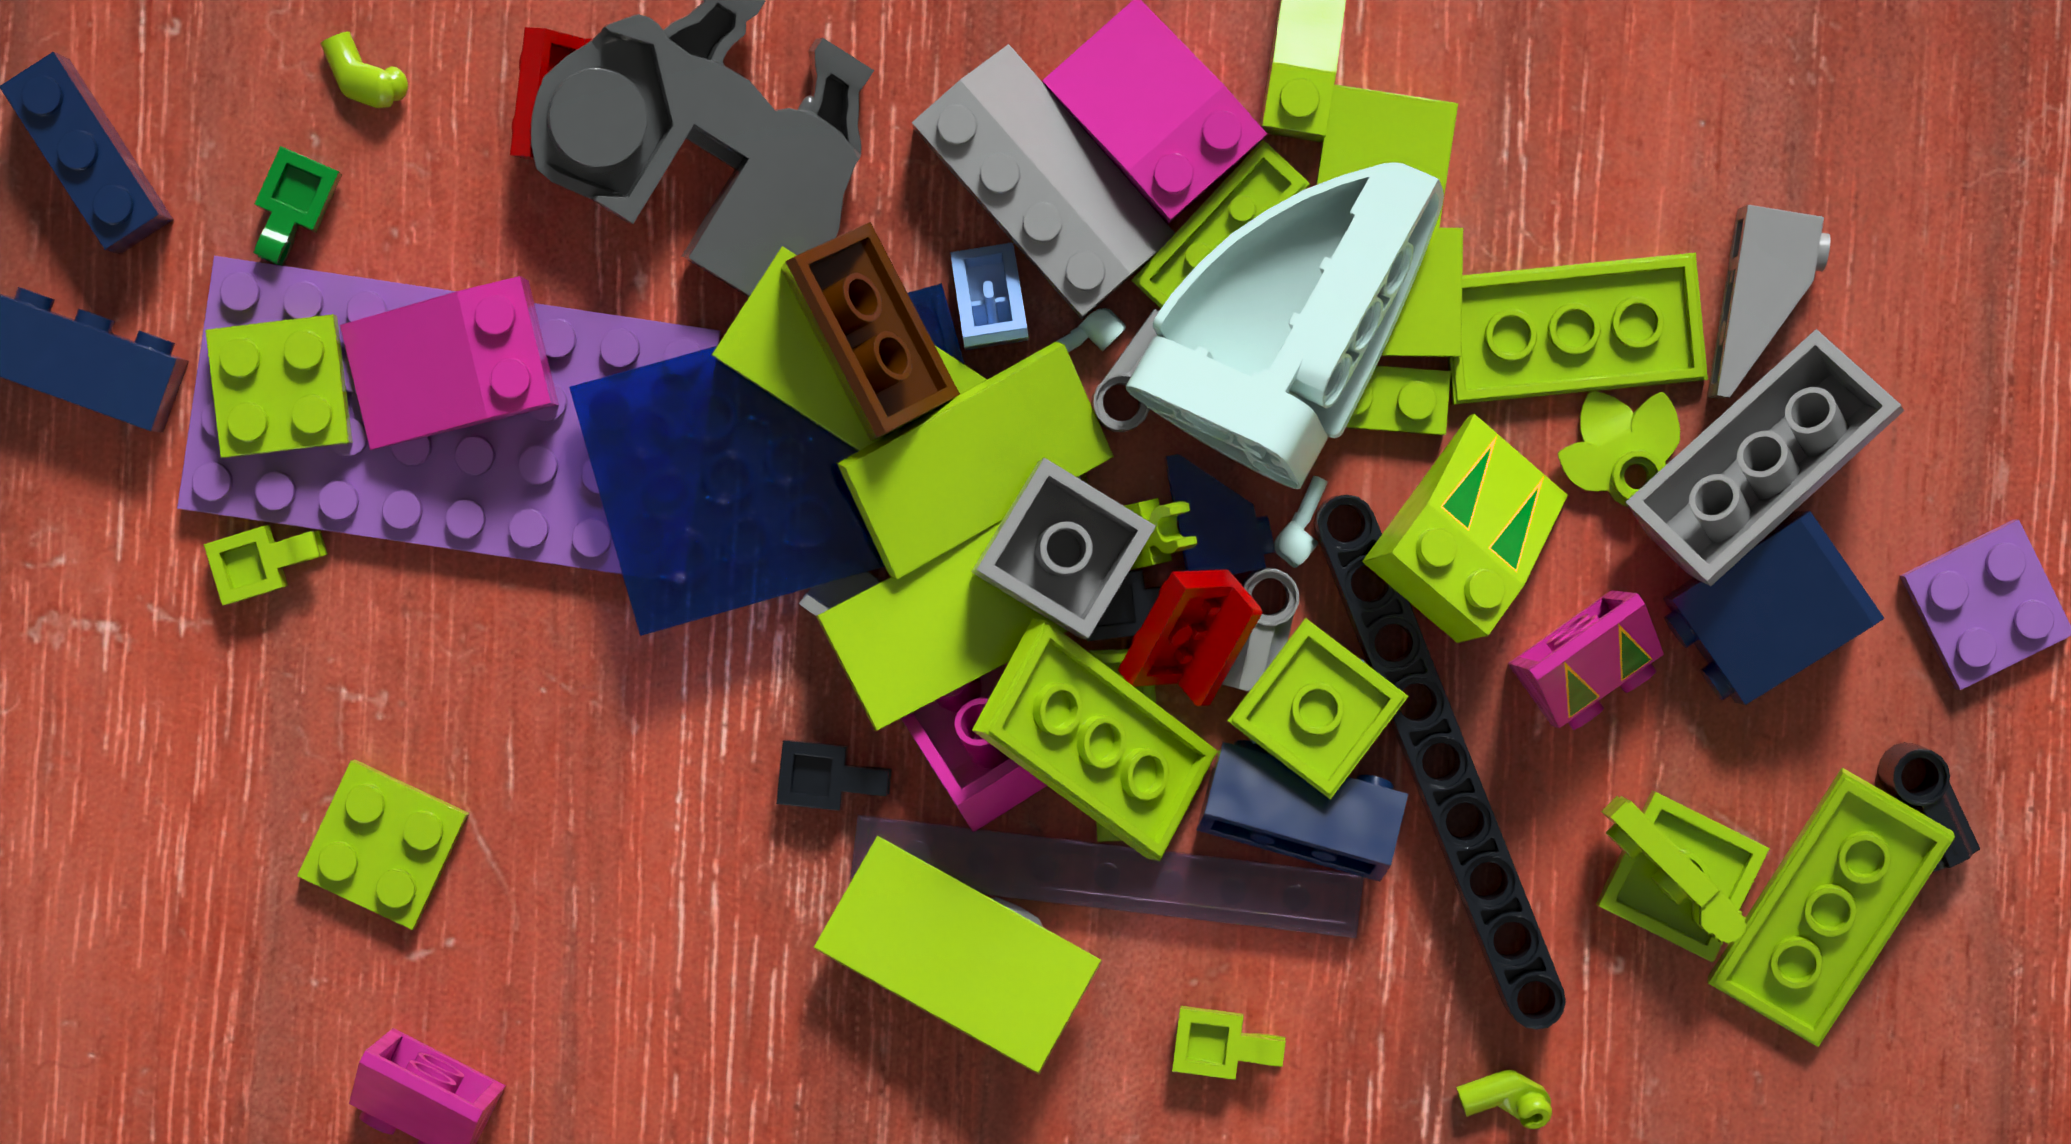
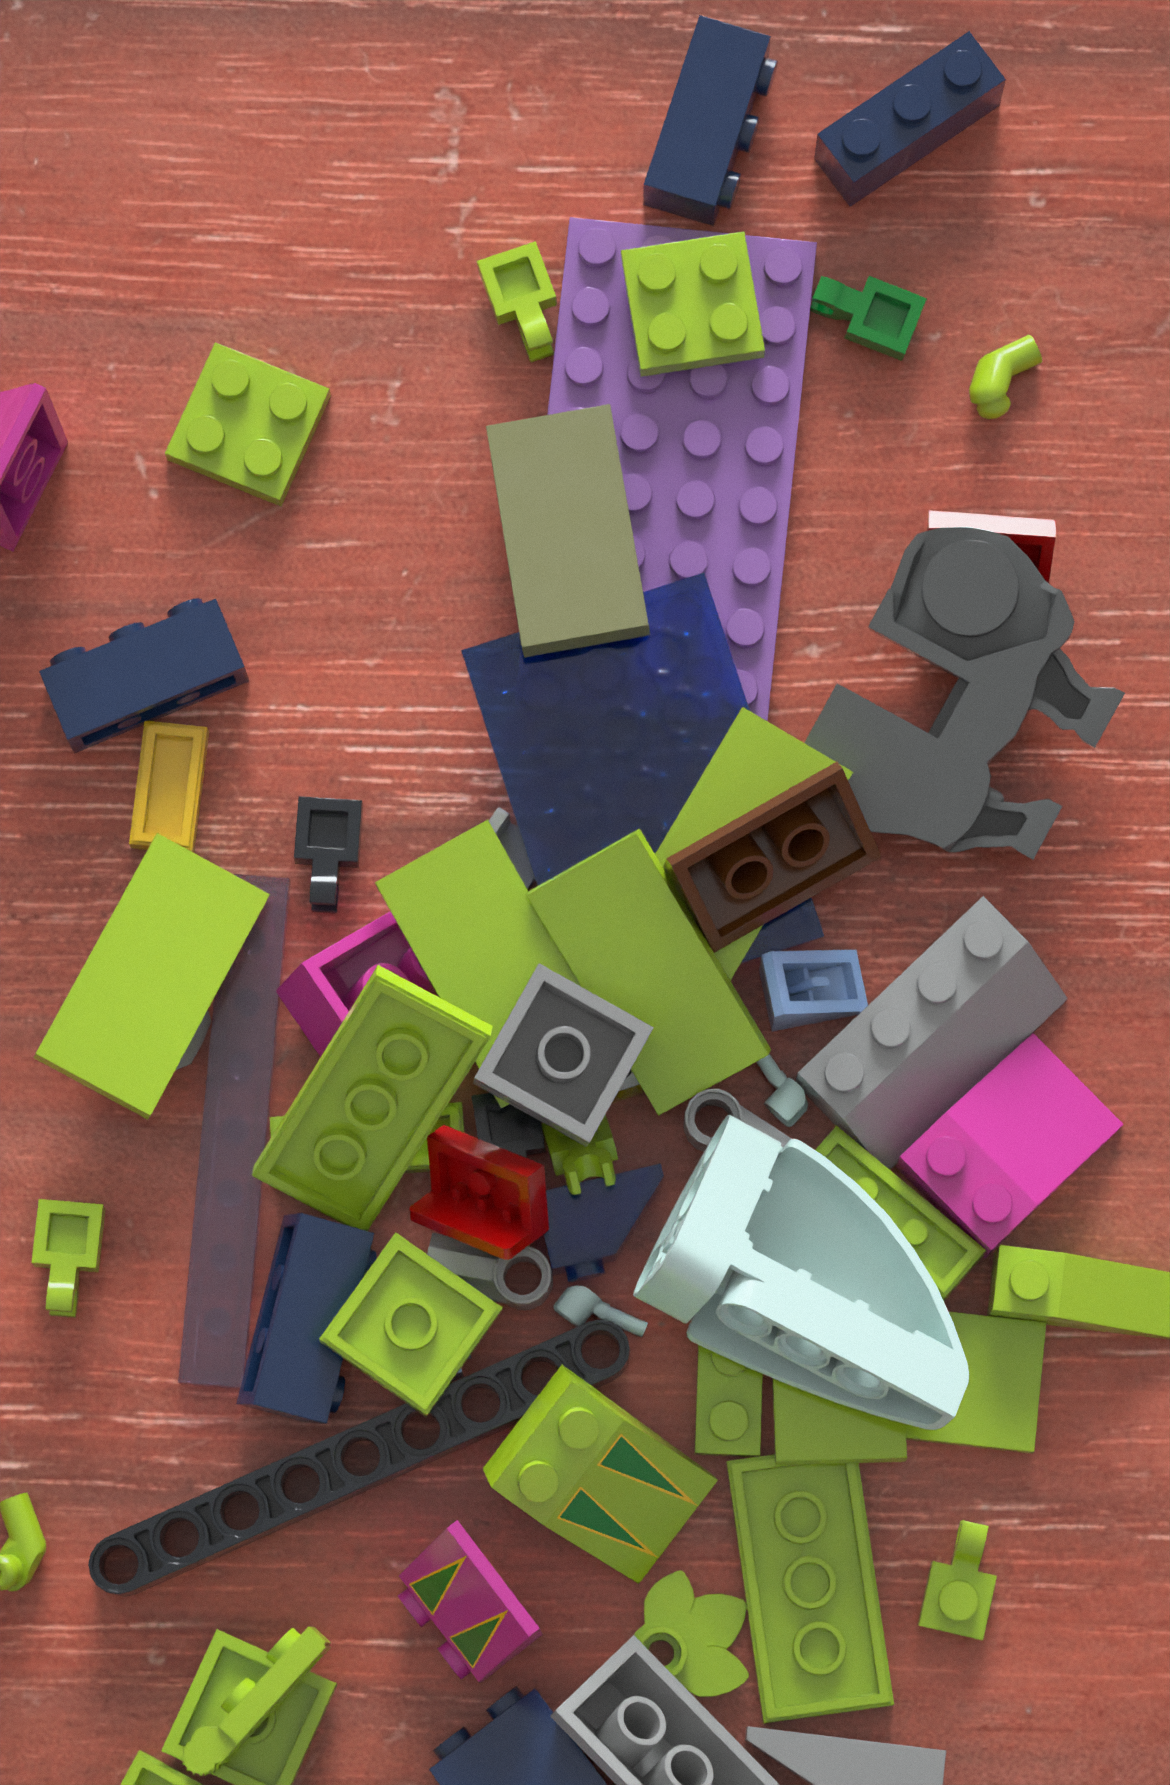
camera: 85 degrees right, 10 degrees down
(449, 363) = (723, 464): dark pink slope -> none
(518, 523) = (567, 531): none -> tile
(642, 957) = (143, 673): none -> dark blue brick
(757, 933) = (169, 784): none -> yellow tile
(1590, 184) = (957, 1594): none -> lime plate

